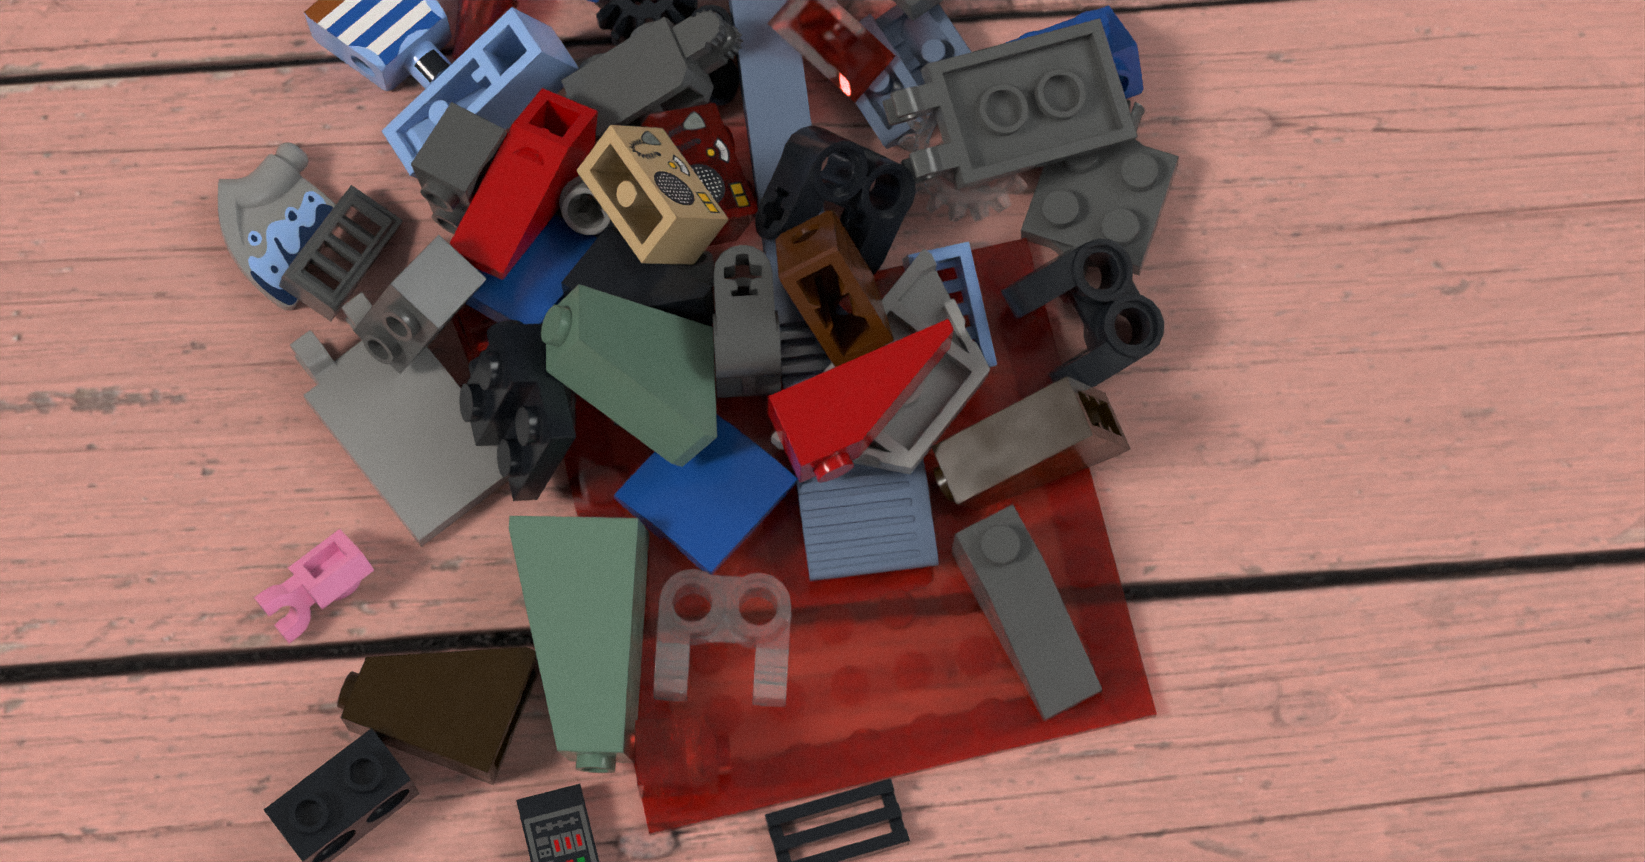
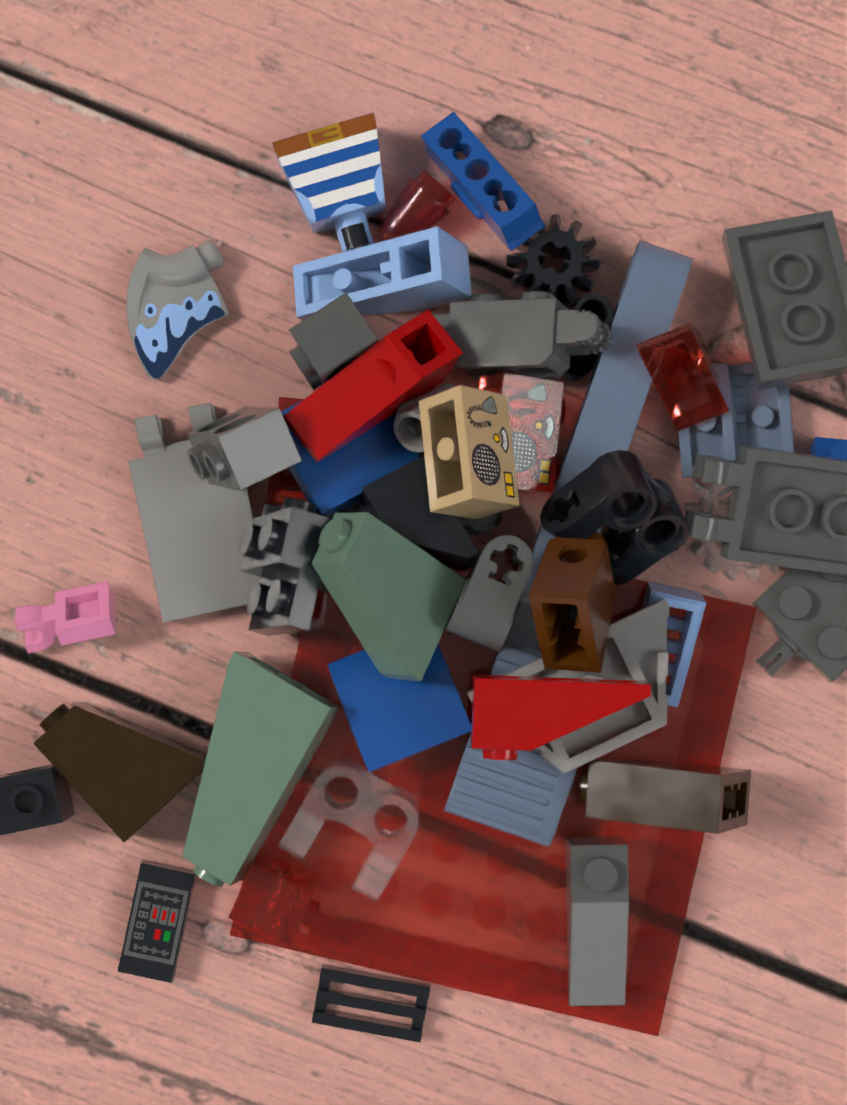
camera: 30 degrees right, 15 degrees up
(312, 290) = (205, 384): dark grey slope -> none
(1096, 308) = (764, 742): black piece -> none

